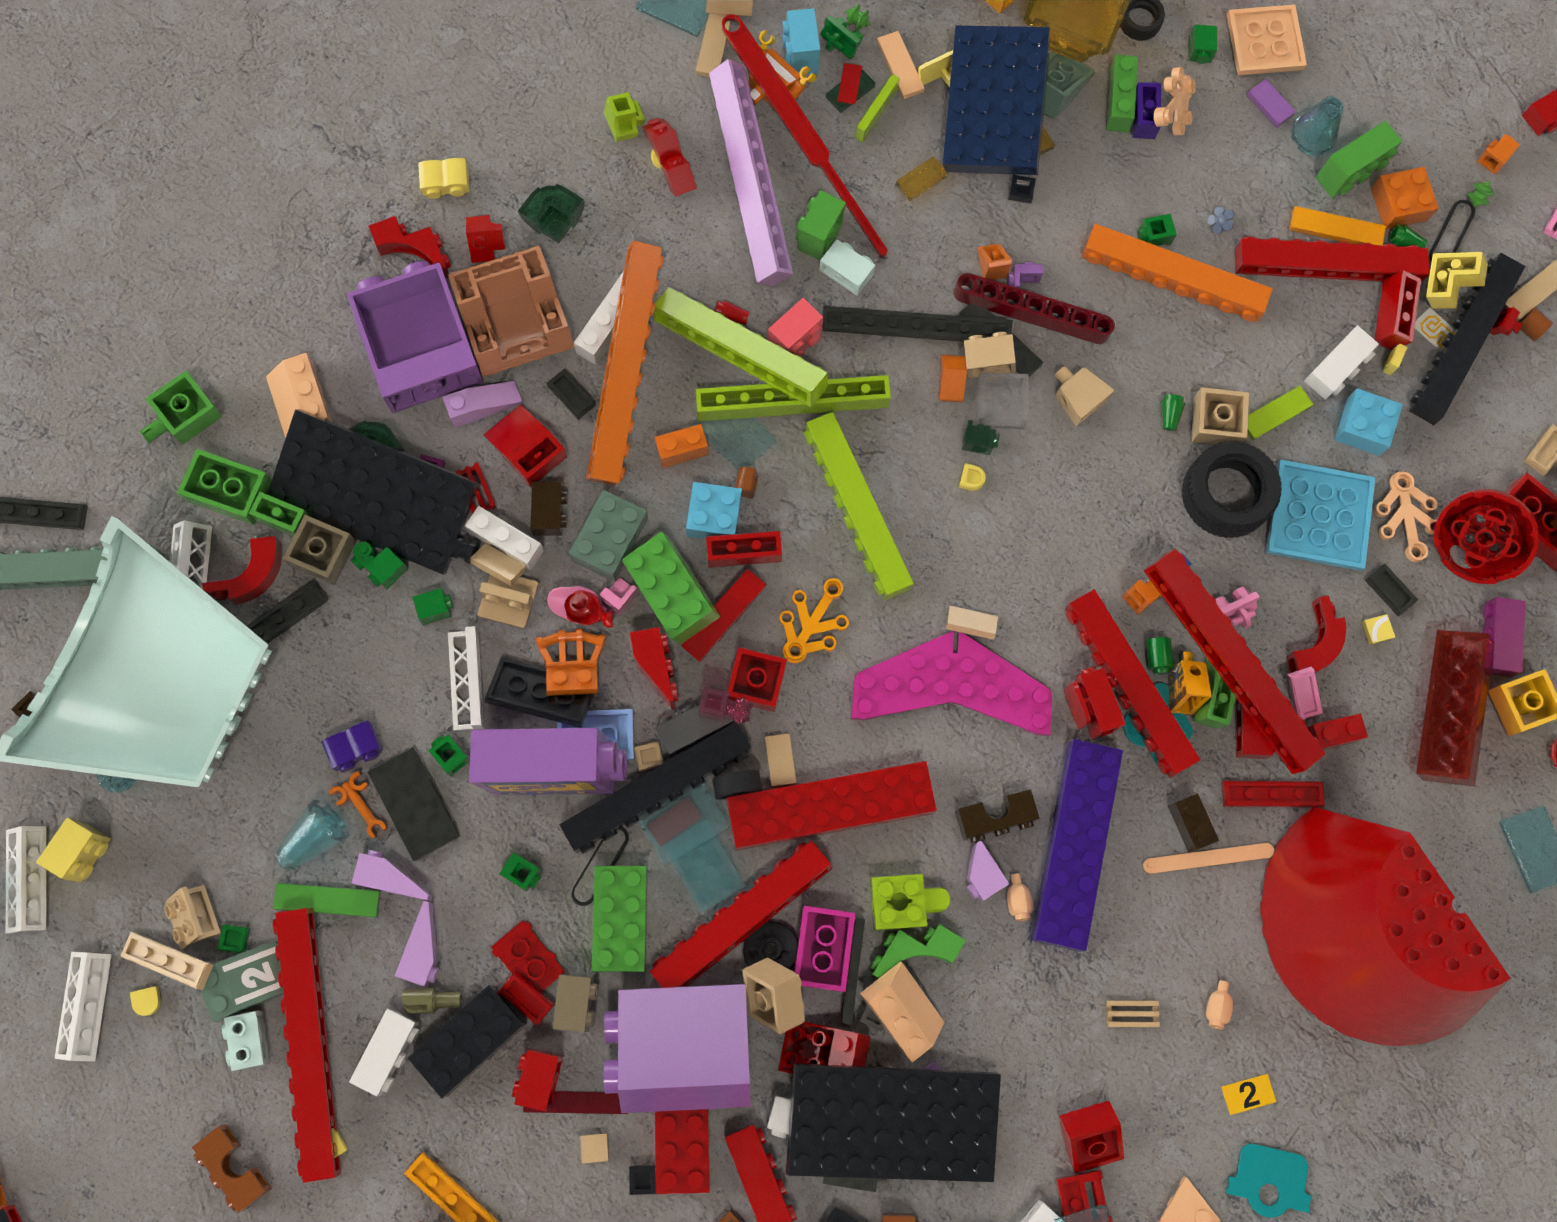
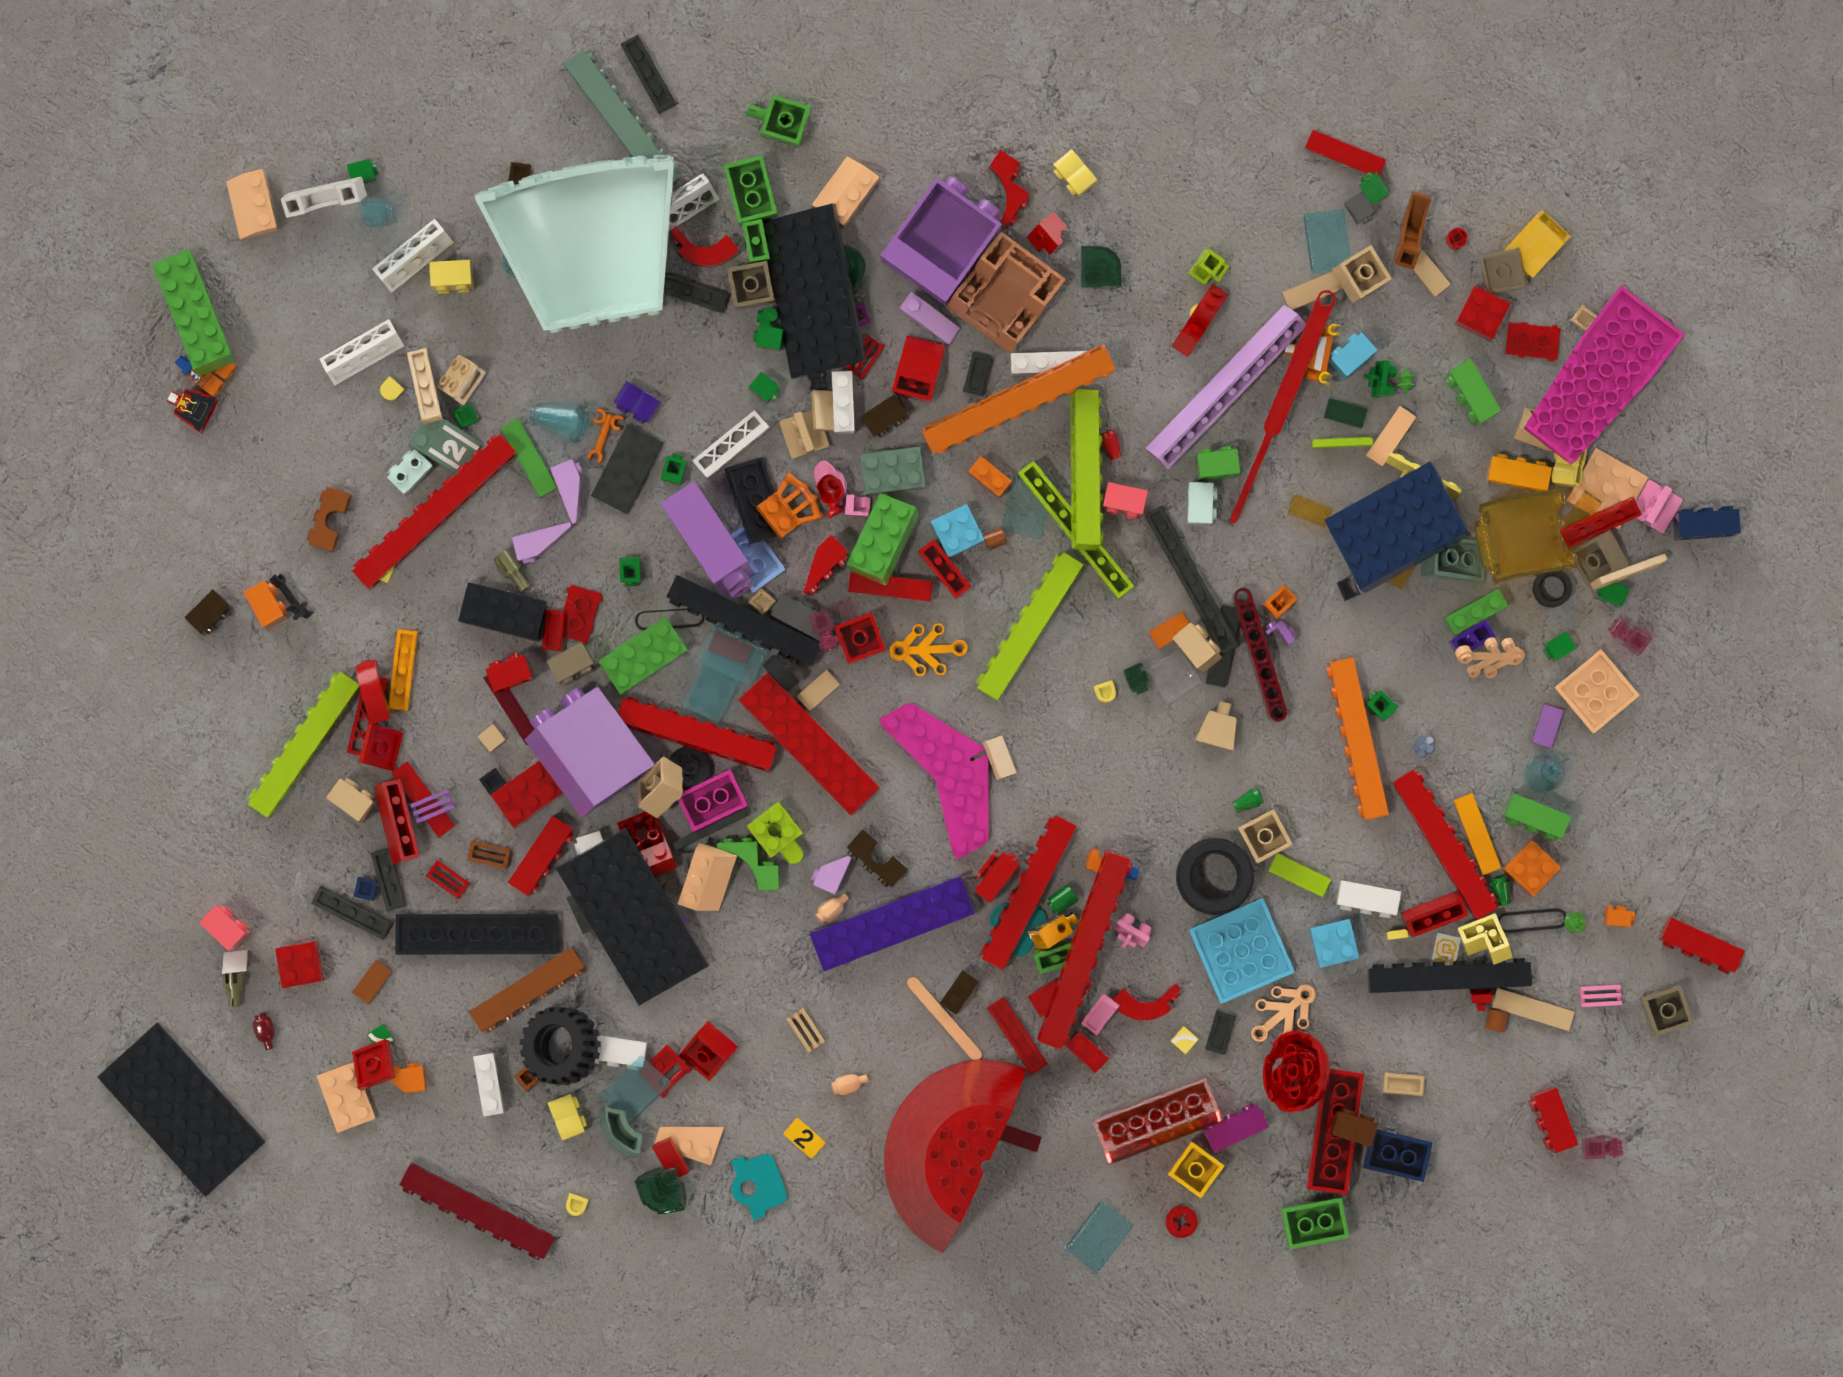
camera: 60 degrees right, 10 degrees up
(385, 1052) = (461, 565): white brick -> none
(849, 83) = (1348, 410): red sticker -> none

